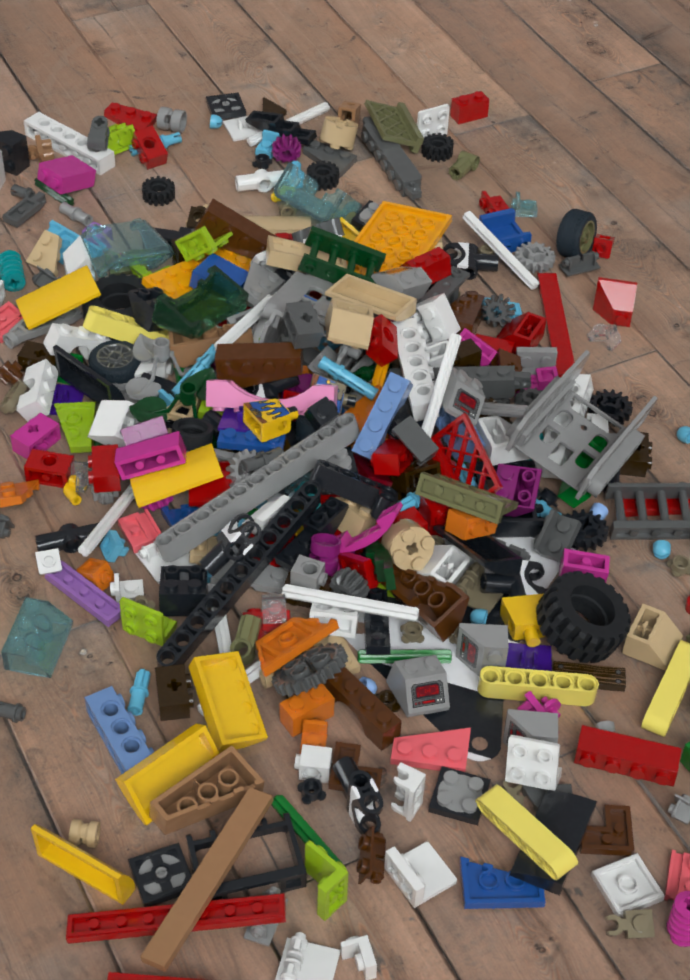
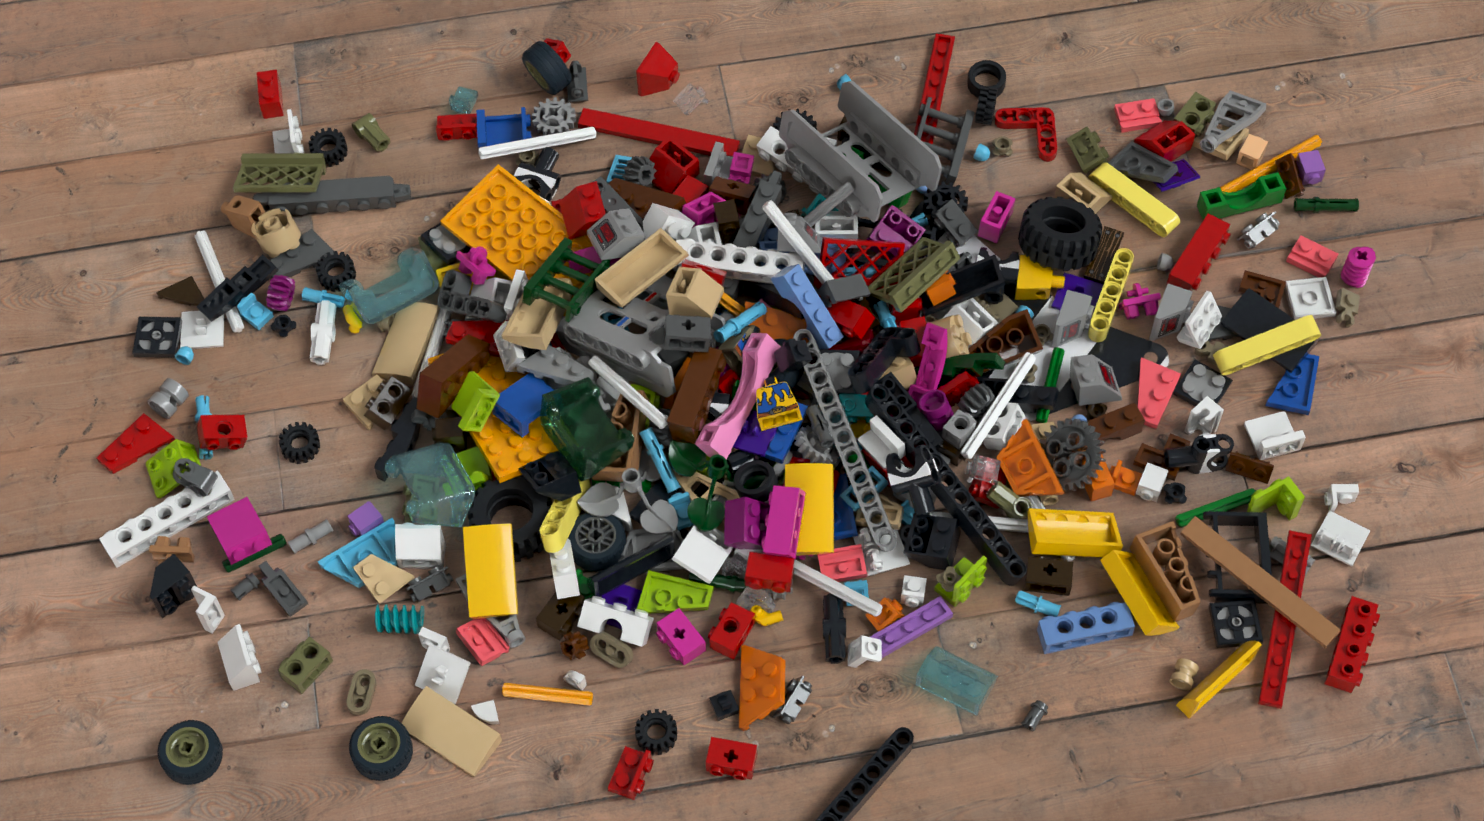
camera: 70 degrees left, 15 degrees up
(351, 227) = (475, 262): none -> dark pink hips

